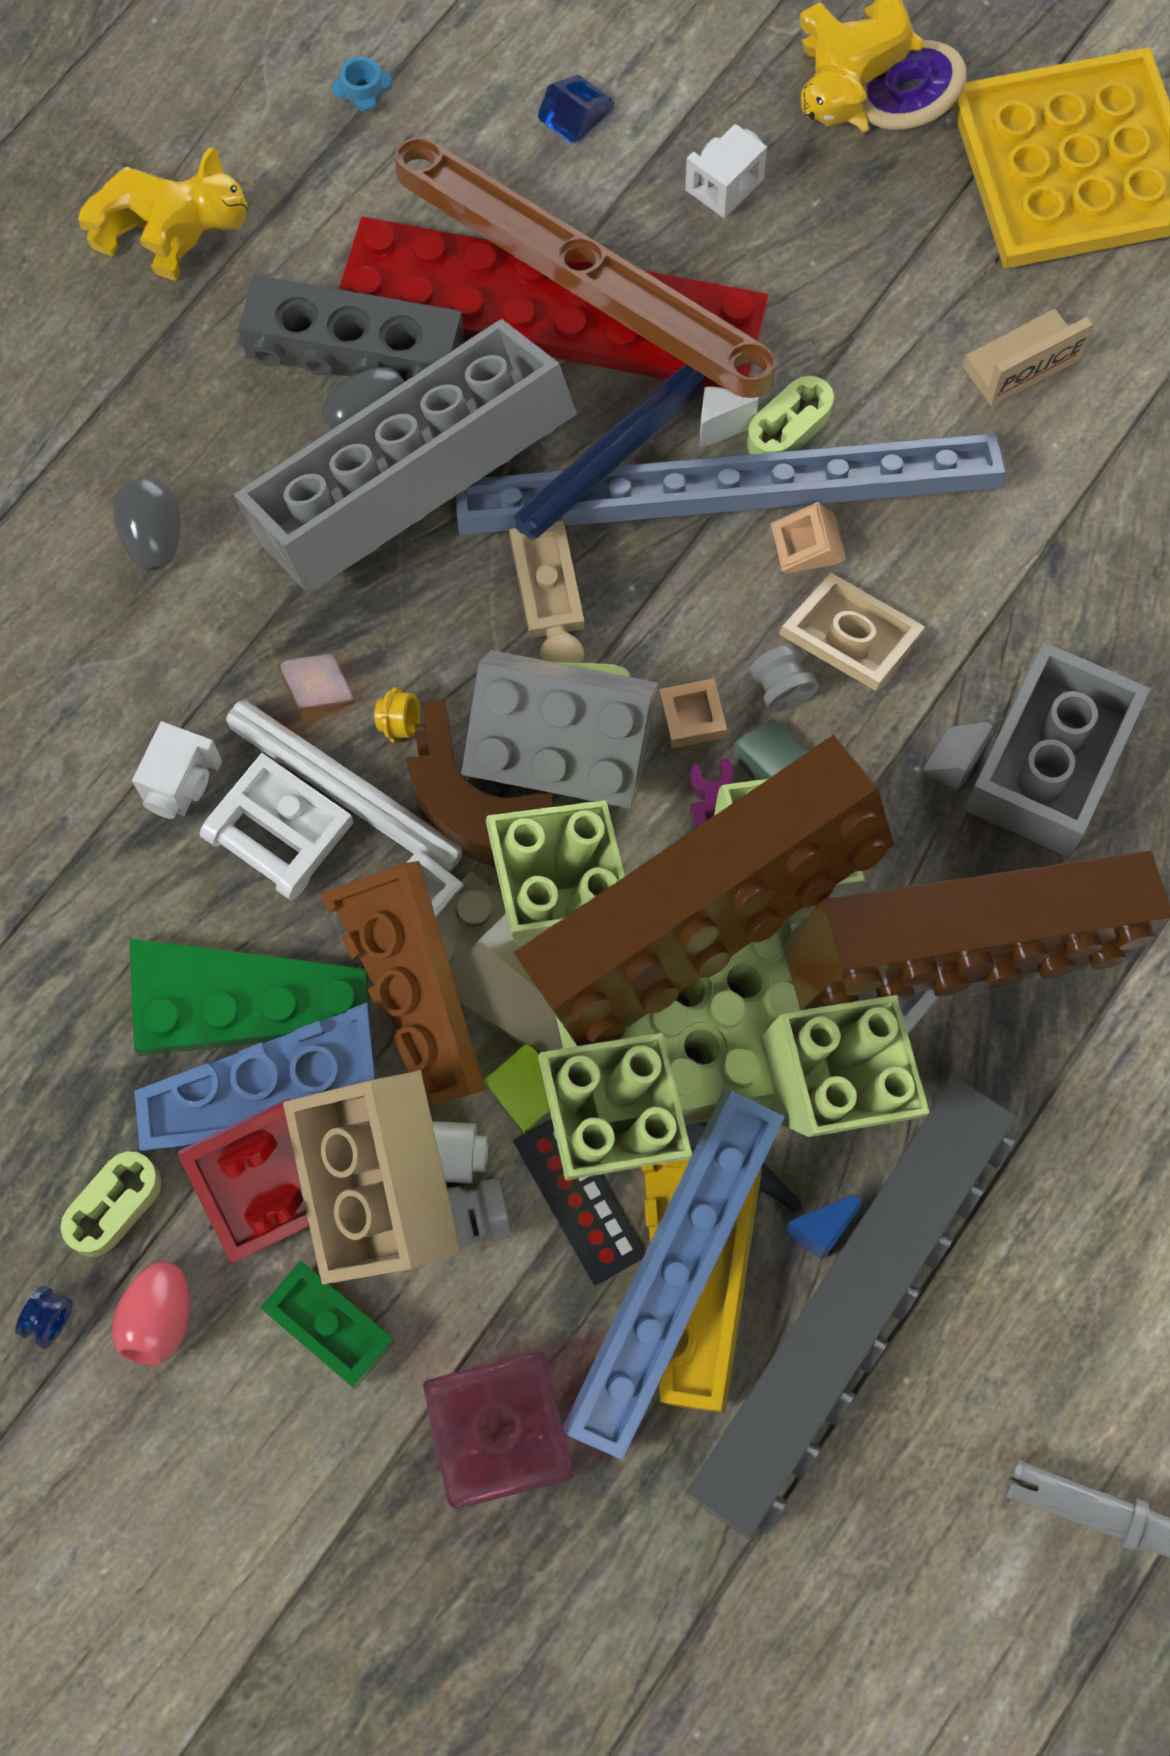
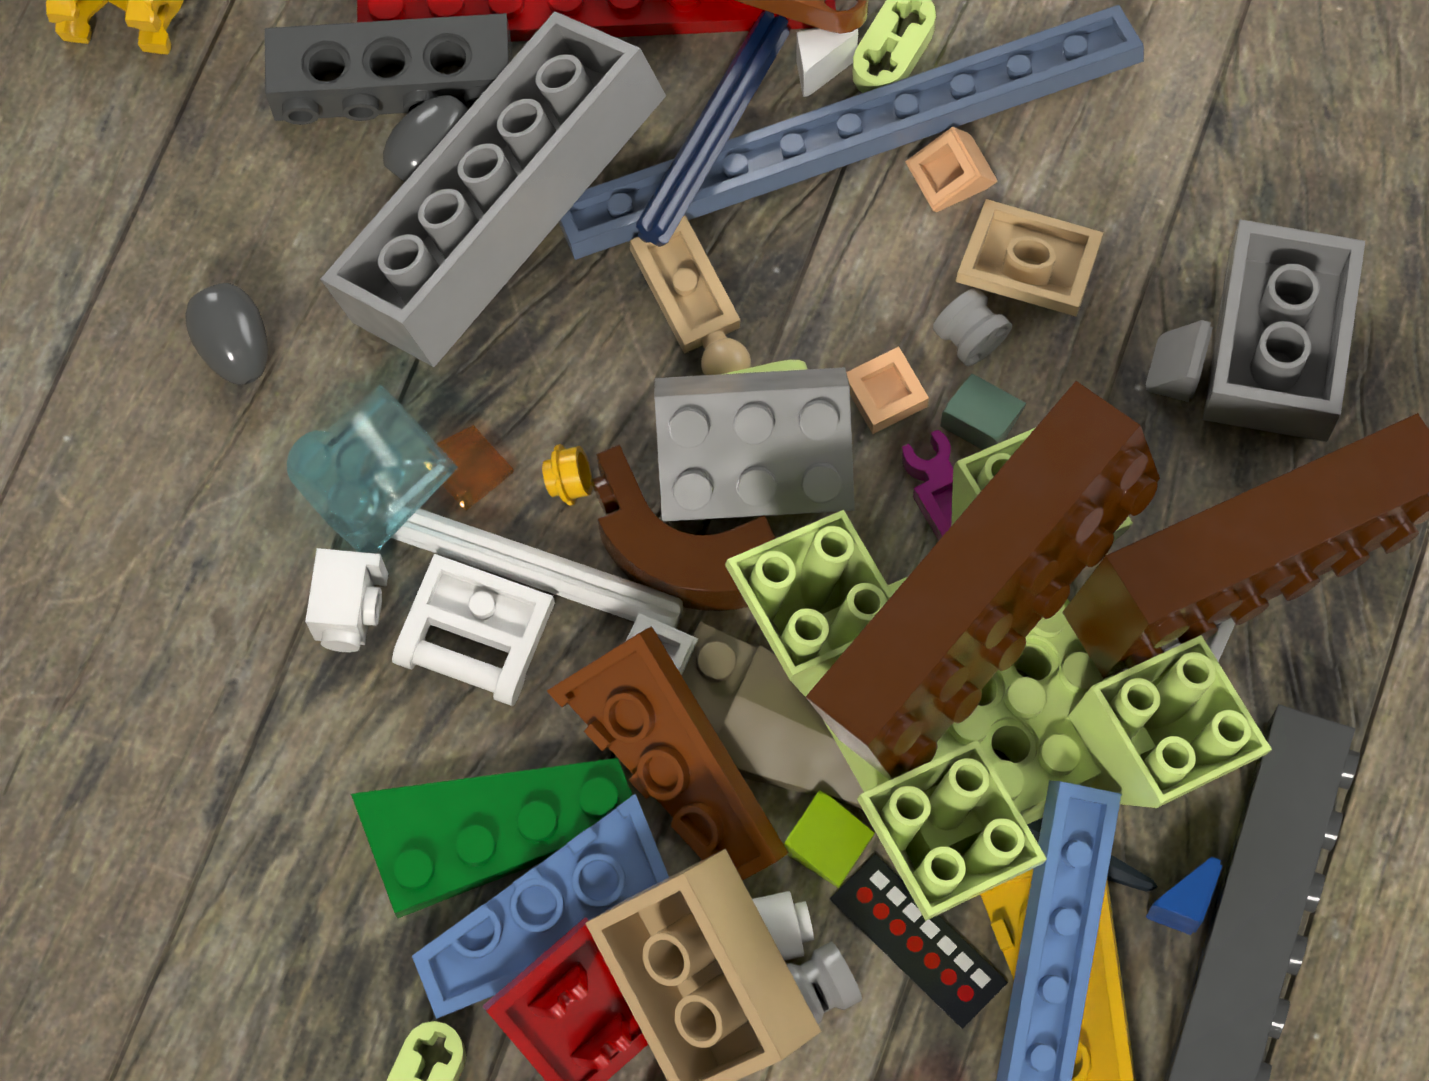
camera: 15 degrees left, 0 degrees up
(226, 668) = (369, 470): none -> clear light blue slope

